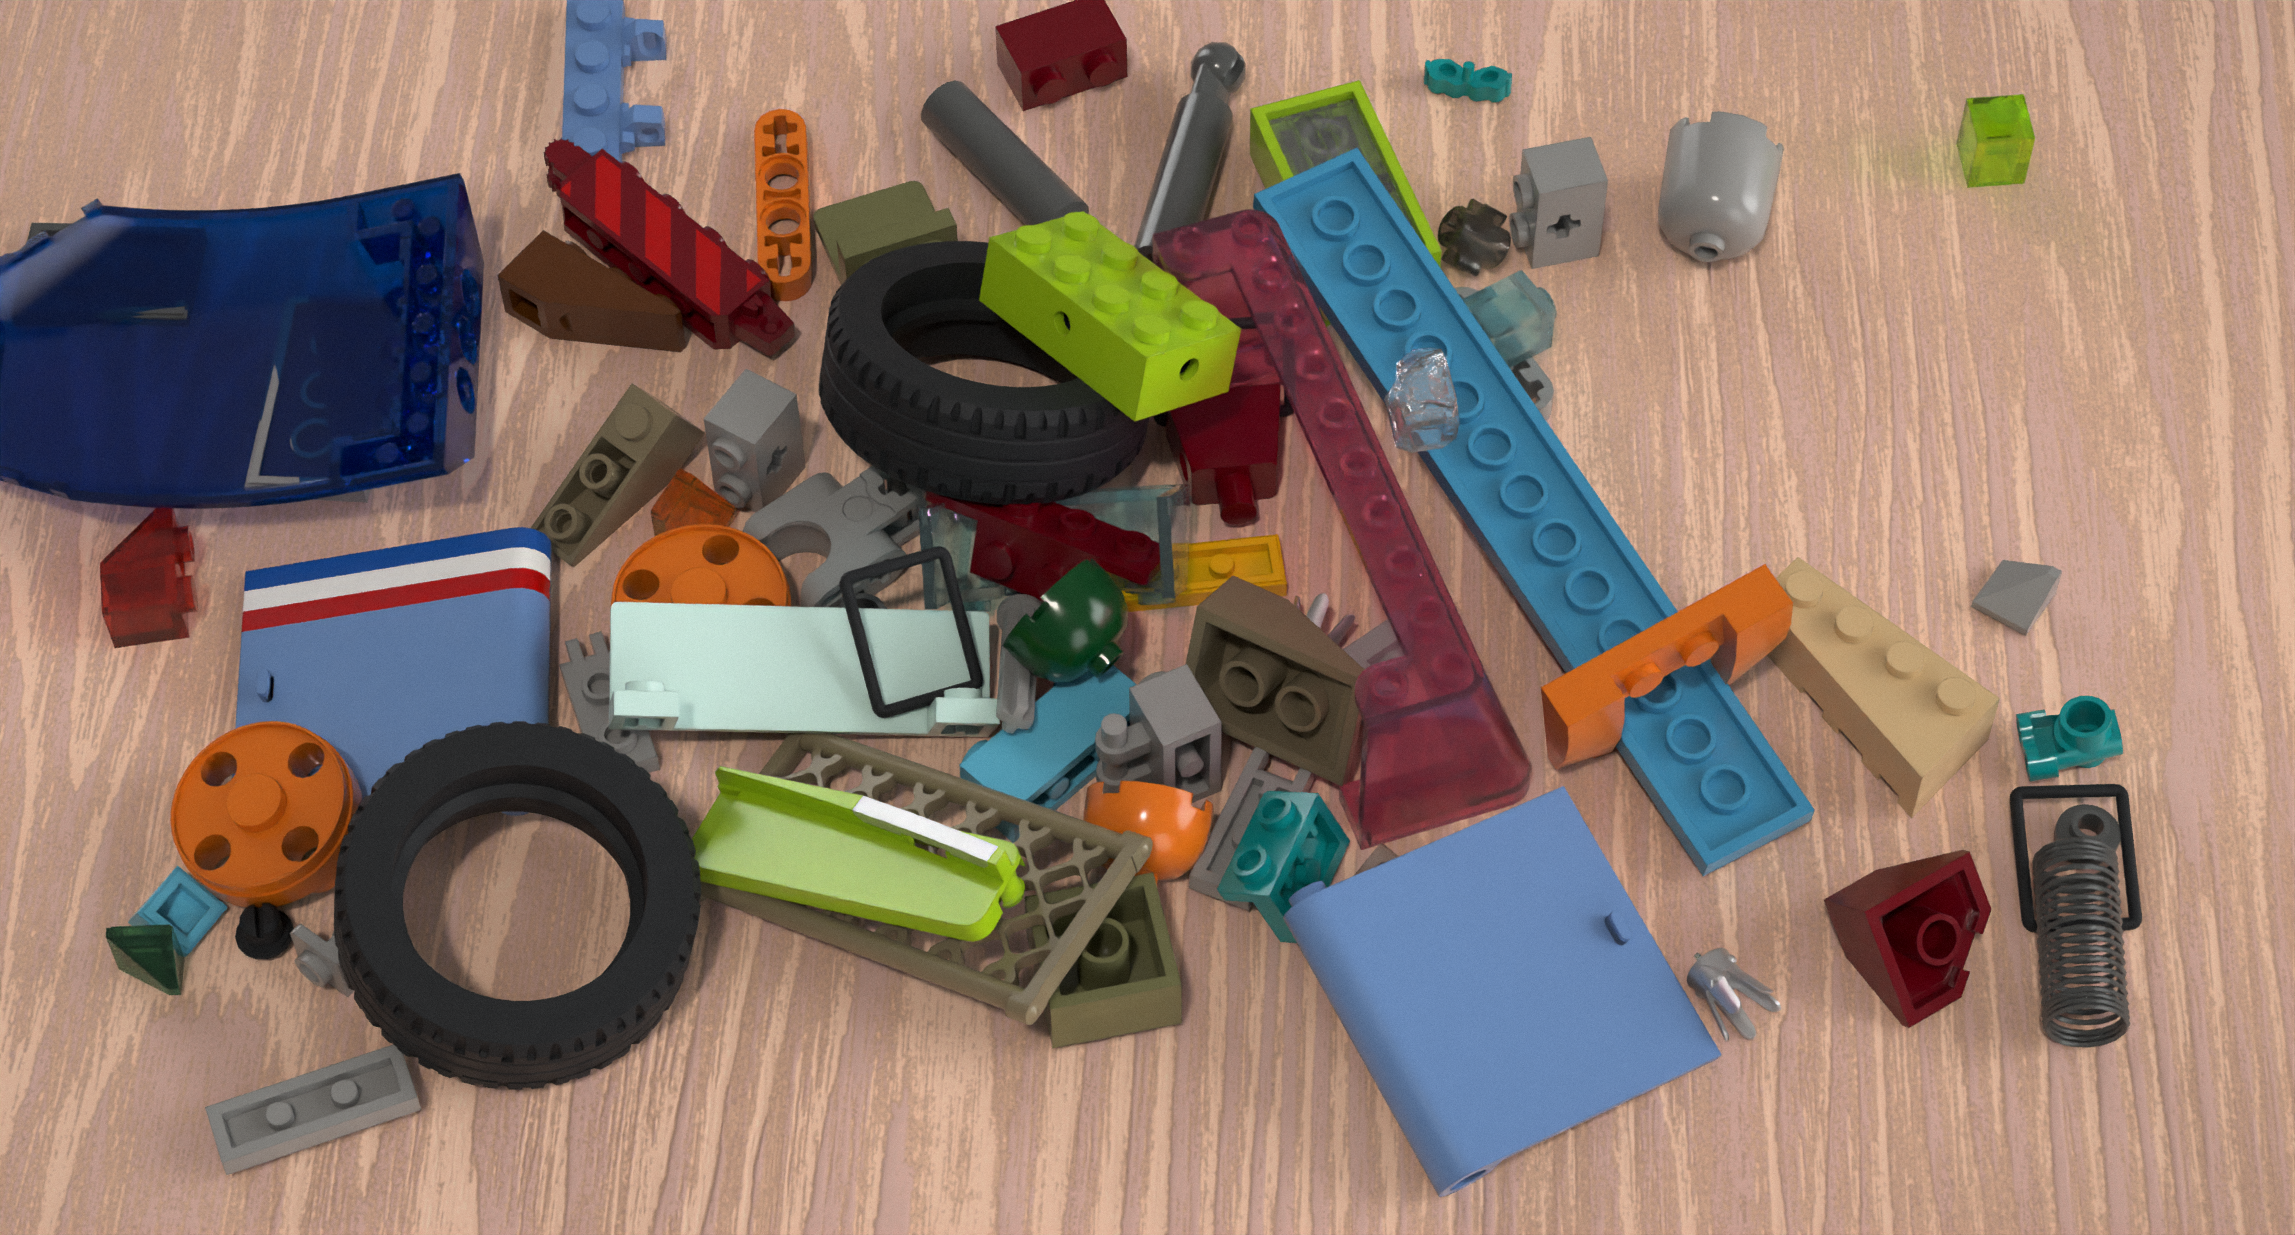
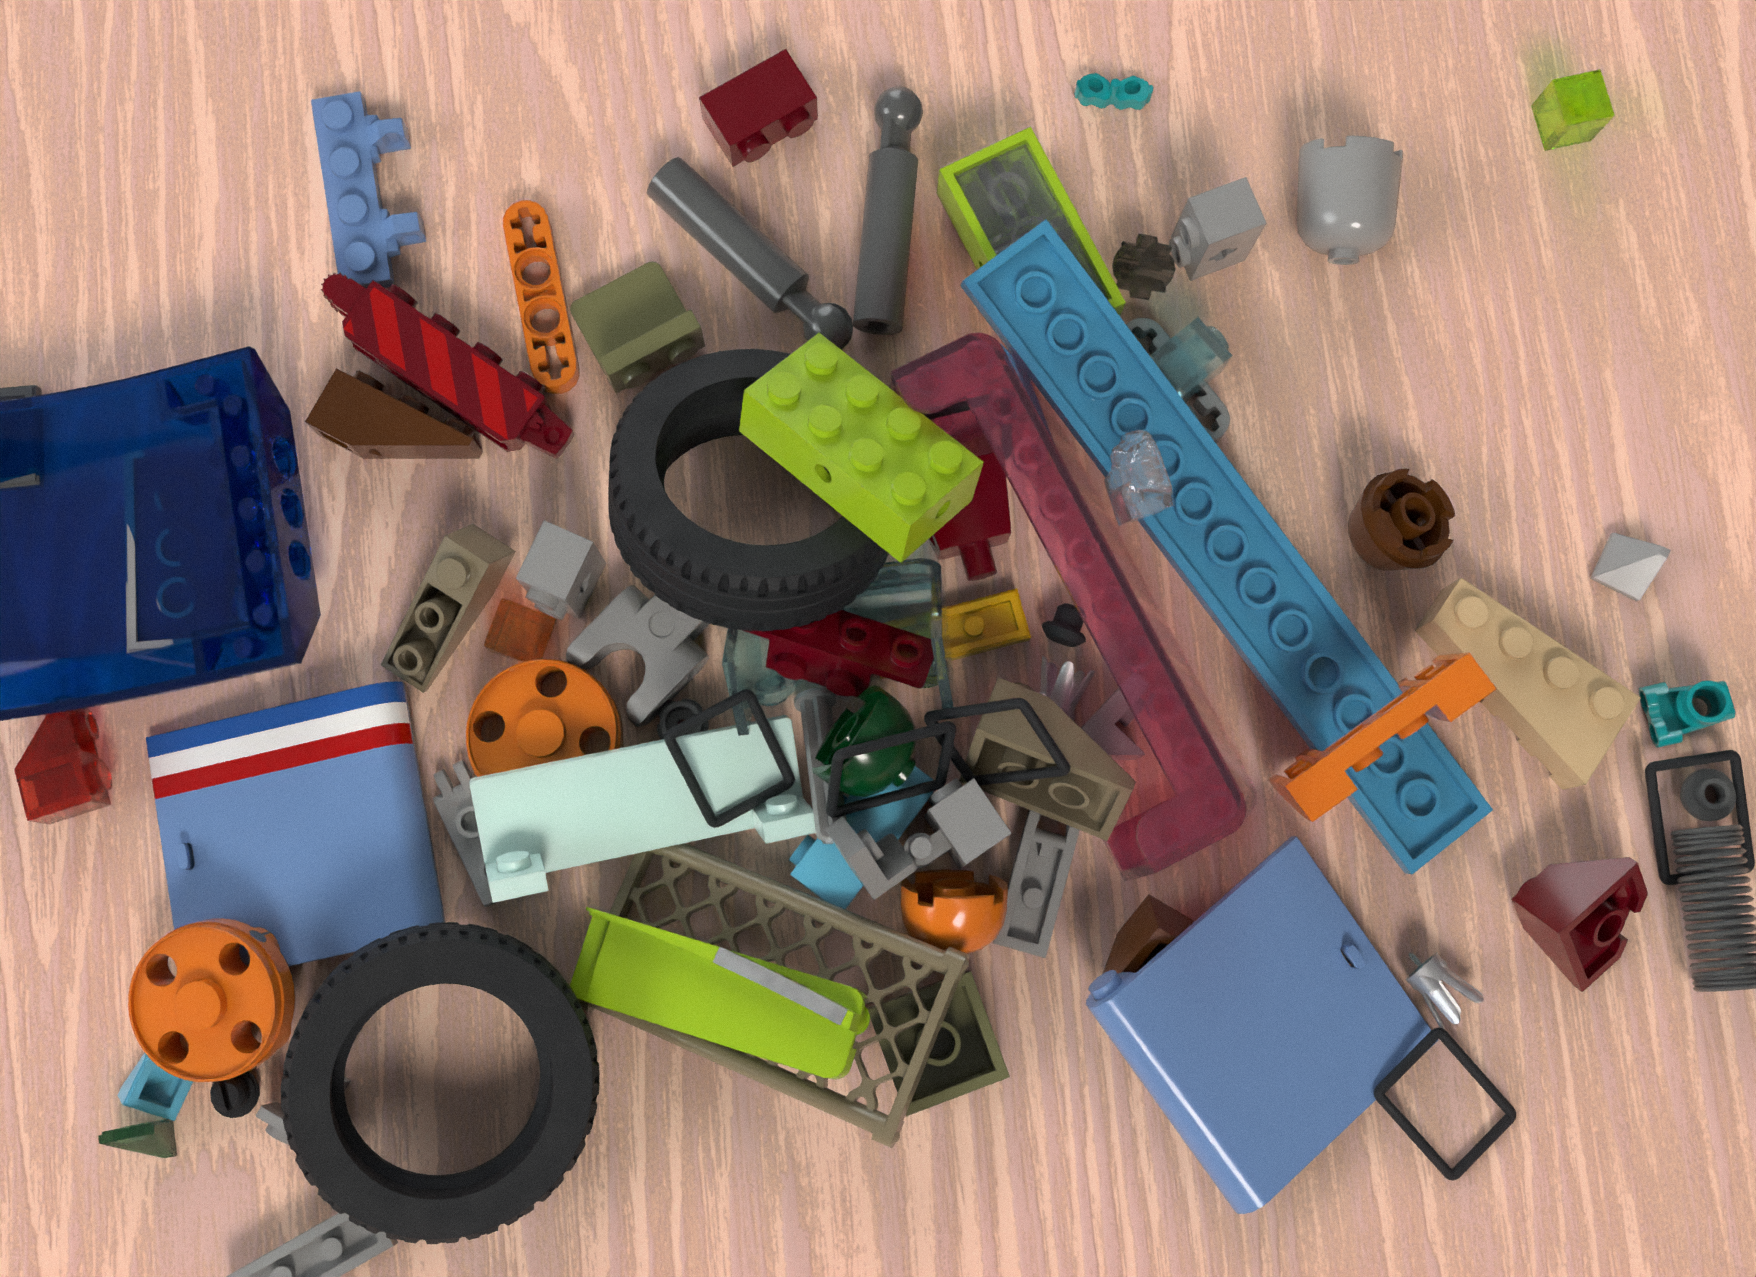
camera: 15 degrees left, 25 degrees up
(1042, 730) = (874, 863): none -> light grey bracket
(1086, 593) = (833, 810): none -> black piece
(1206, 576) = (1062, 768): none -> black piece
(1281, 851) = (1068, 919): teal bracket -> none
(1330, 577) = (1065, 626): none -> black piece
(1679, 1150) = (1410, 1059): none -> black piece
(1736, 504) = (1401, 522): none -> reddish brown cone

